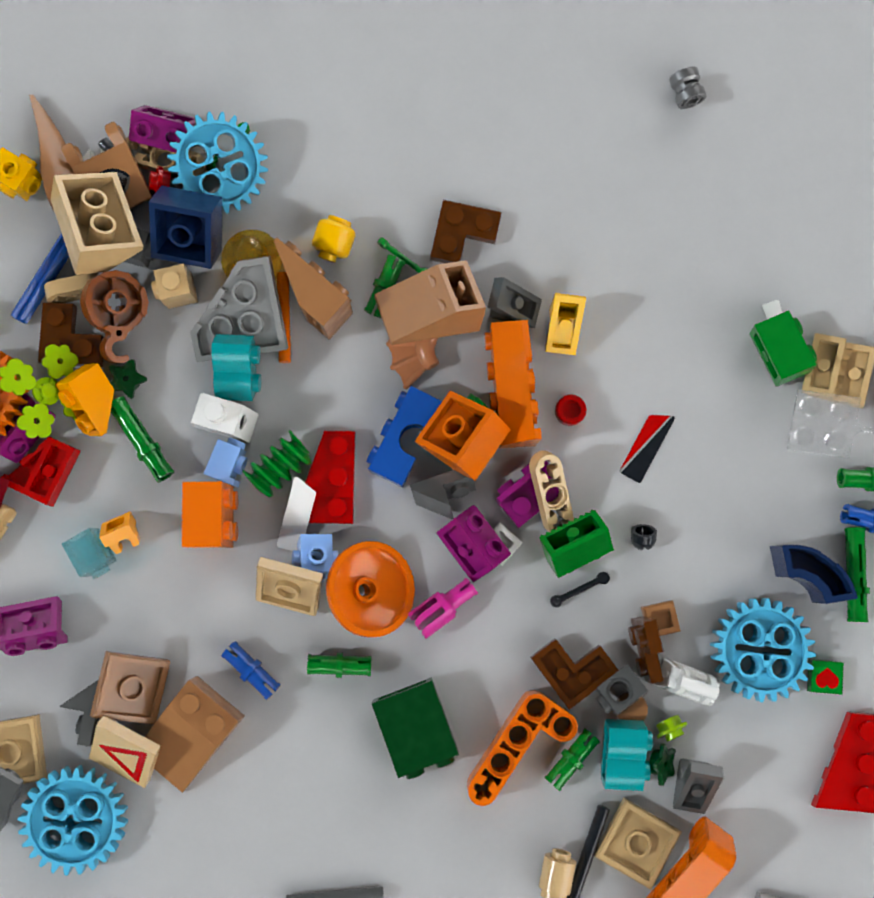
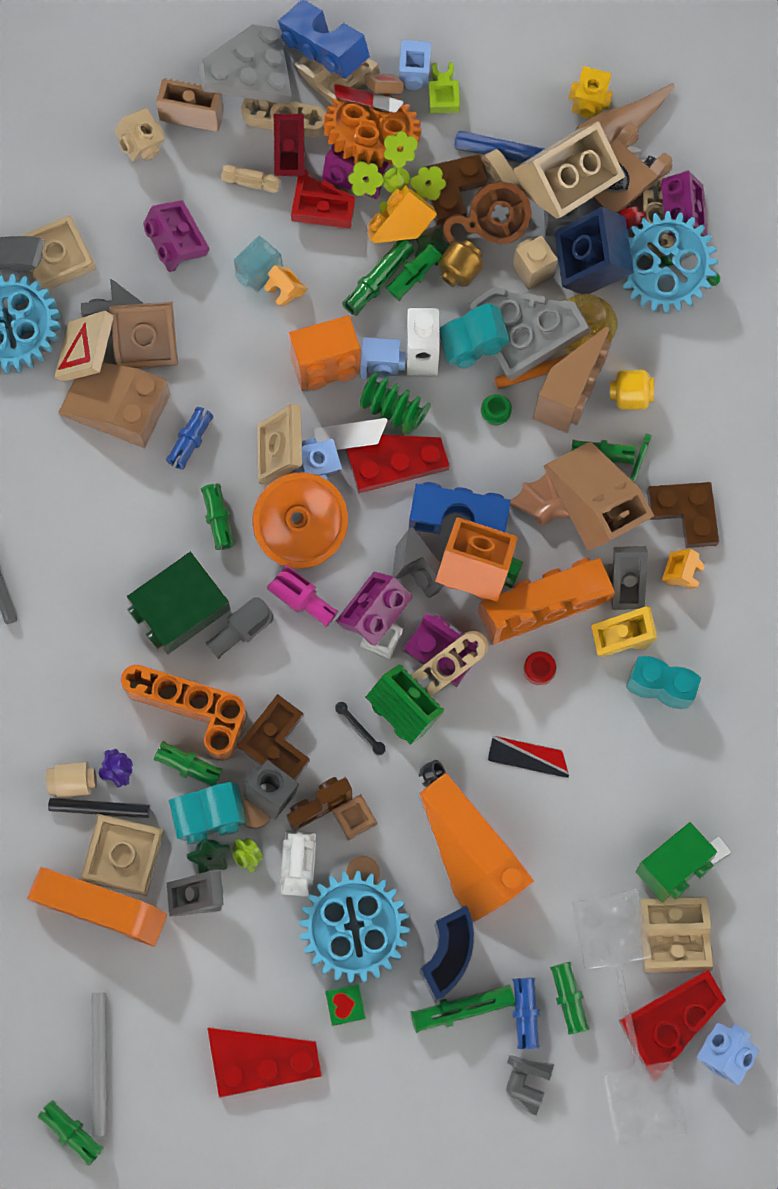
camera: 75 degrees right, 10 degrees down
(148, 404) = (414, 272): none -> green pin
(154, 356) = (460, 263): none -> pearl gold head
(311, 370) = (496, 409): none -> green plate
(455, 672) = (242, 626): none -> dark grey arm
(517, 253) = (681, 568): none -> light orange tile
(557, 828) = (116, 768): none -> dark purple plant
(621, 302) = (671, 685): none -> teal brick
(708, 623) = (366, 866): none -> medium nougat tile
(732, 523) = (476, 859): none -> orange wedge

